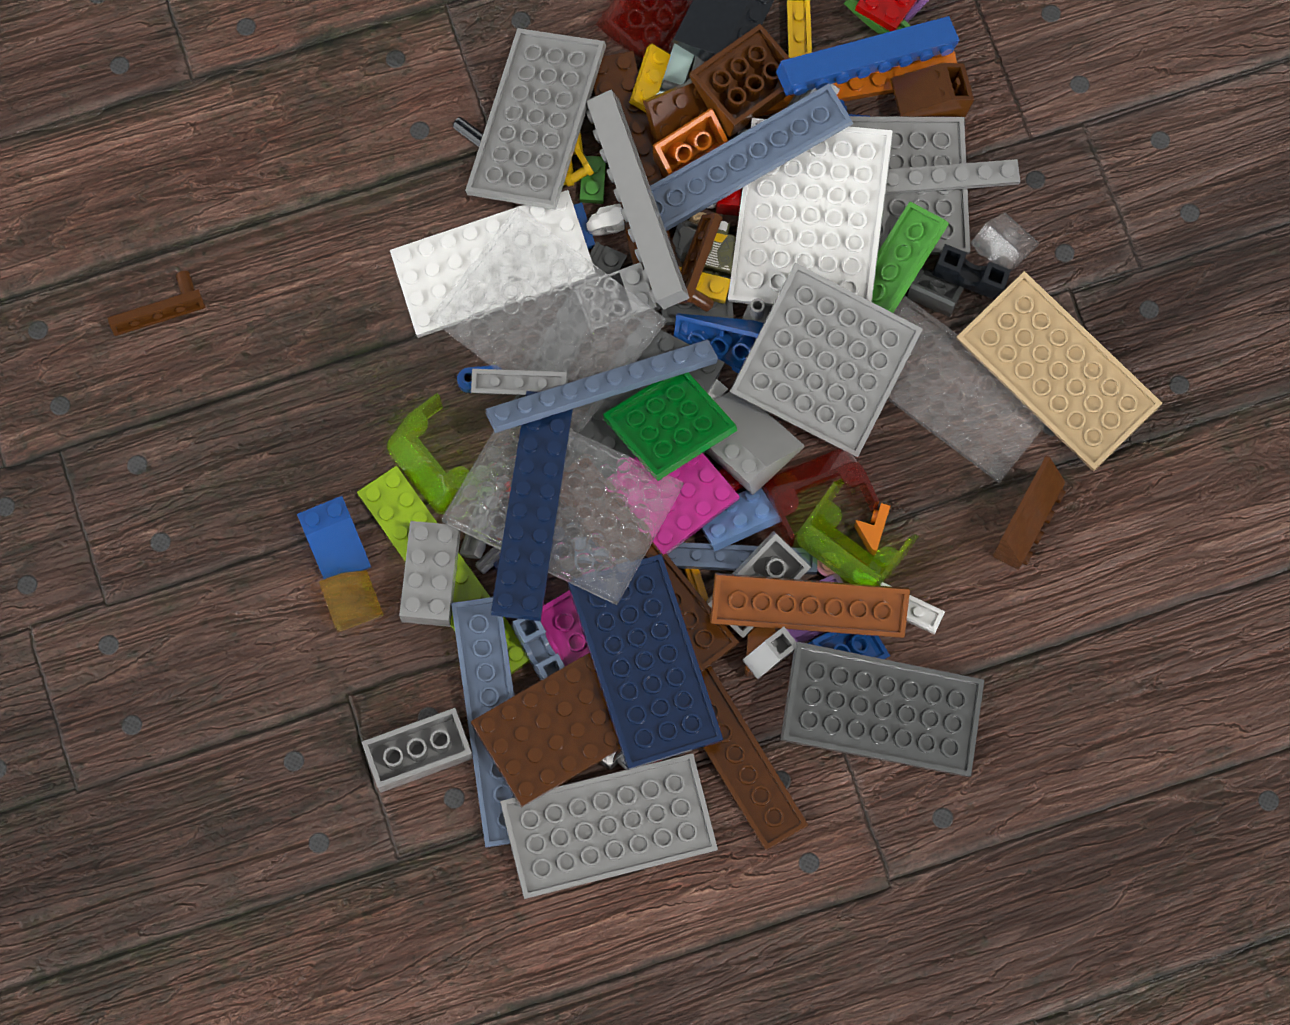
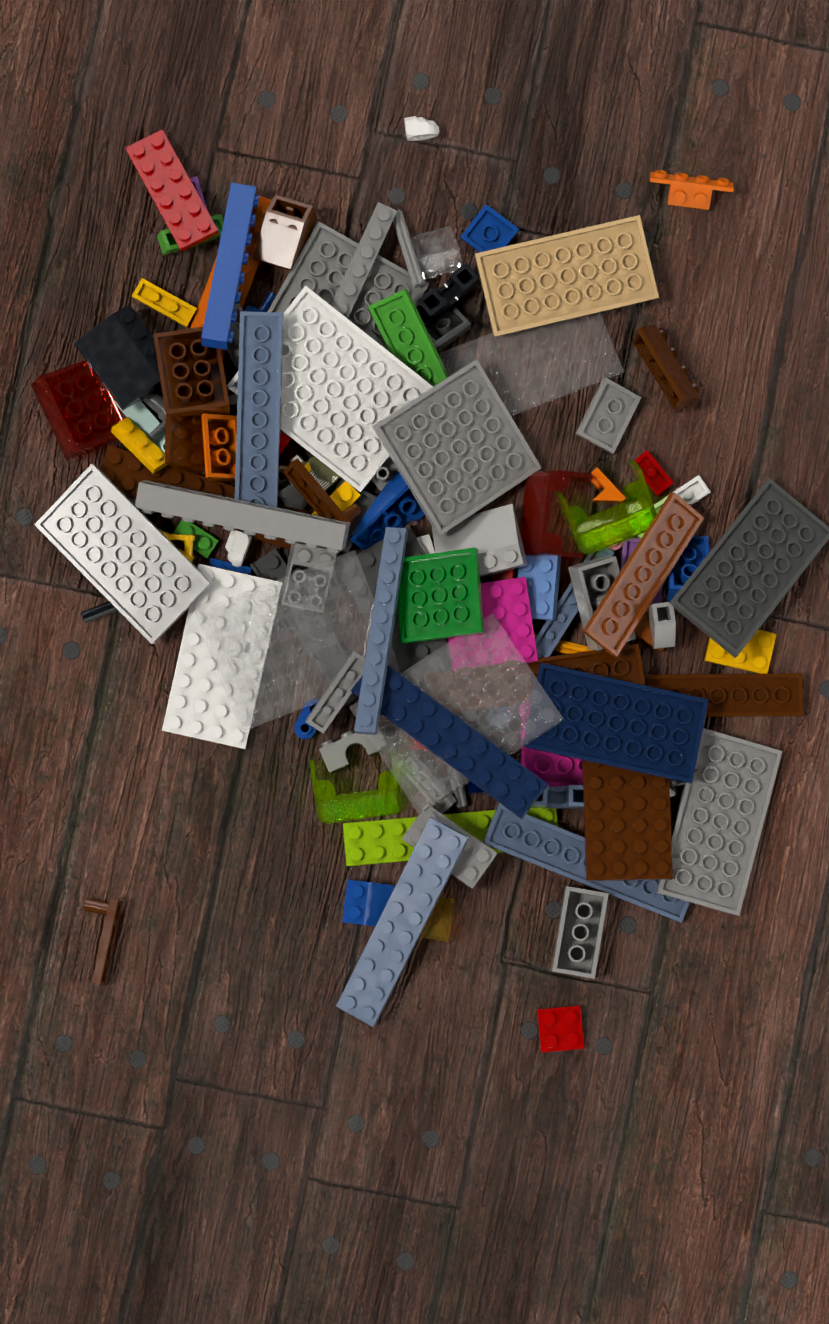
camera: 65 degrees left, 10 degrees up
(311, 789) = (560, 1028): none -> red plate
(329, 568) = (402, 921): none -> sand blue plate
(461, 419) = (335, 752): none -> light grey arch
(797, 764) = (753, 658): none -> yellow plate
(917, 565) = (654, 475): none -> red plate
(948, 490) = (608, 415): none -> light grey plate
(990, 213) = (408, 249): none -> light grey axle
(1058, 278) = (489, 231): none -> blue plate
(1112, 161) = (420, 129): none -> white rock
(1219, 445) = (690, 191): none -> orange bracket

